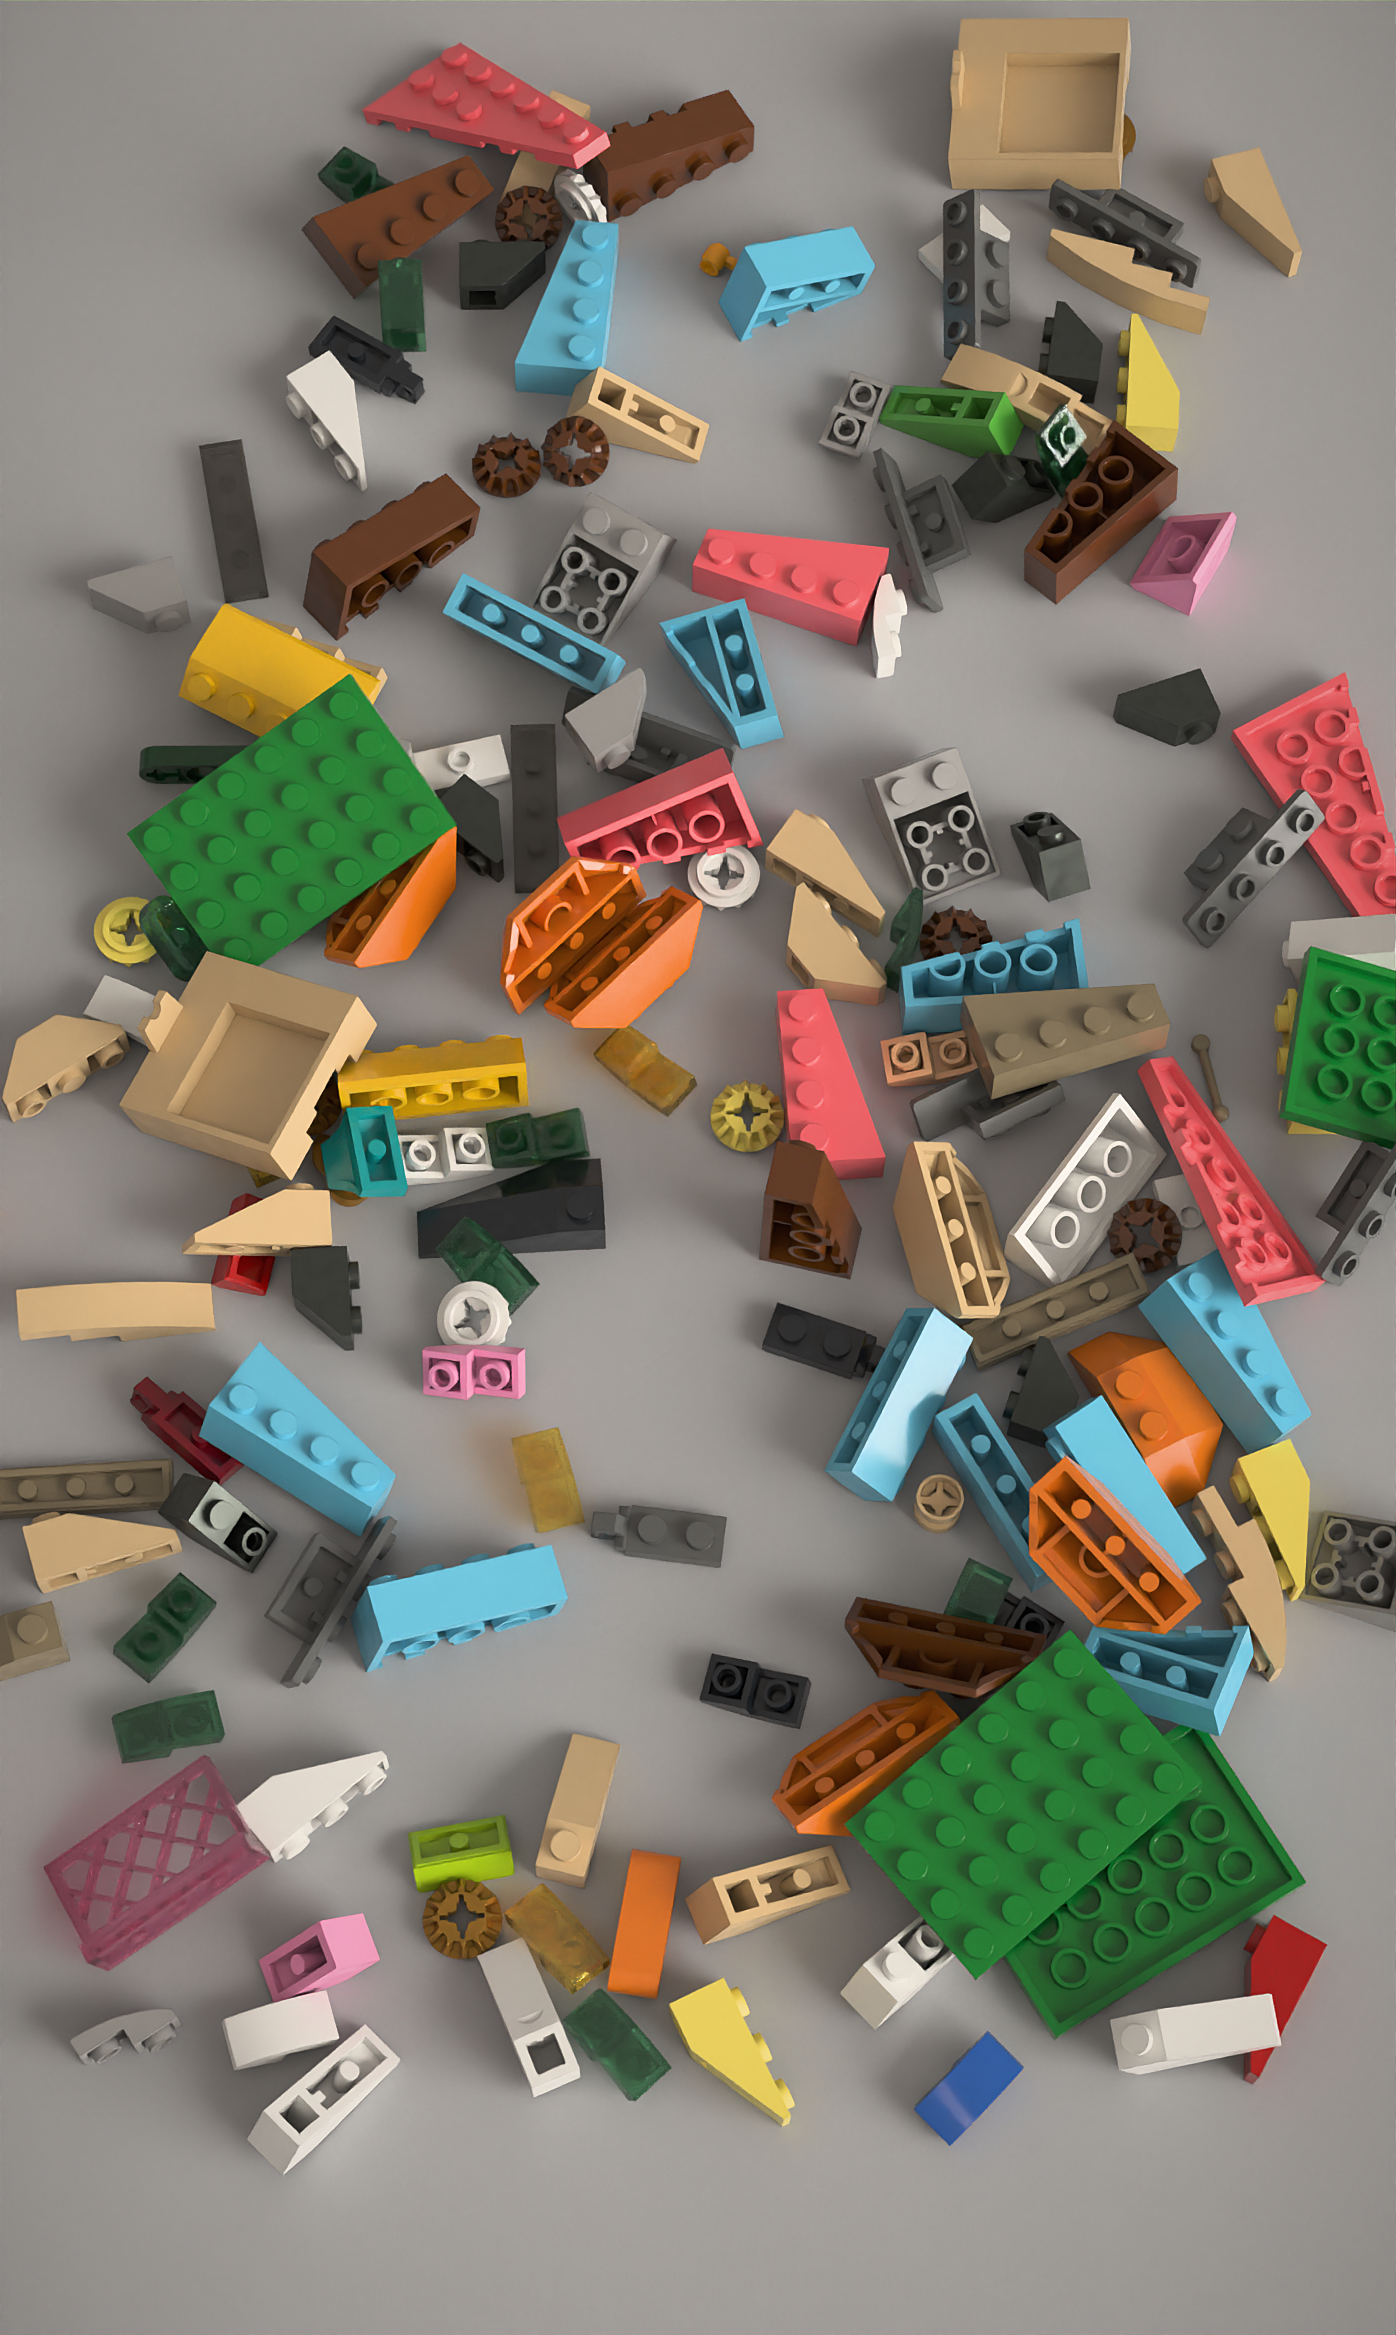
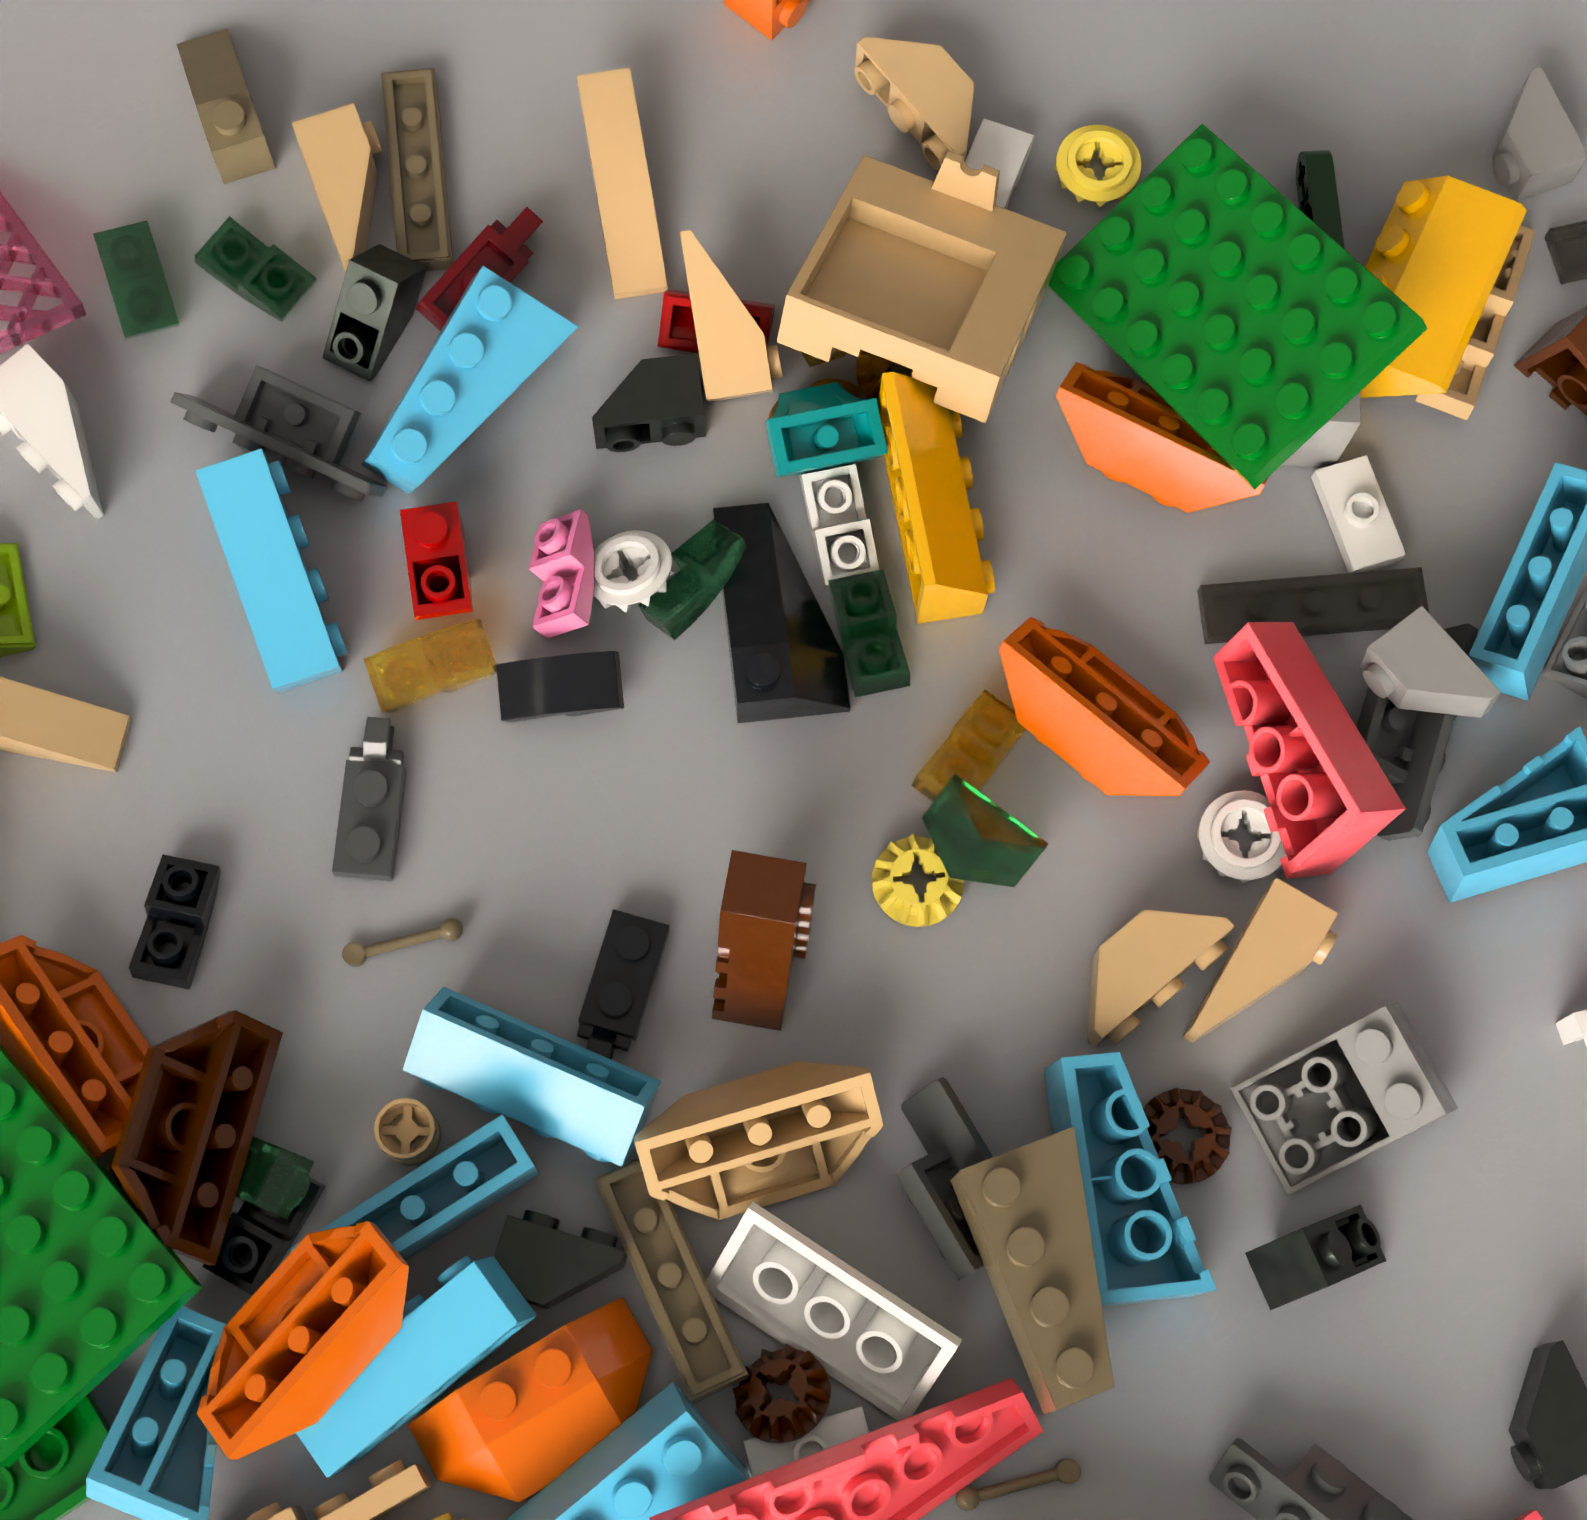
camera: 85 degrees right, 5 degrees up
(174, 938) = (1083, 202): clear green plate -> none
(463, 1468) = (437, 560): none -> red slope
(477, 827) = (1276, 530): pearl dark grey slope -> none
(563, 923) = (1143, 632): orange wedge -> none
(572, 1378) = (560, 686): none -> black slope
(717, 1064) = (979, 837): none -> clear green slope
(787, 1550) = (356, 954): none -> dark tan hinge
(821, 1088) = (948, 962): coral wedge -> none
(904, 933) = (1192, 1070): clear green slope -> none
(925, 1060) = (1011, 1096): light nougat slope -> none

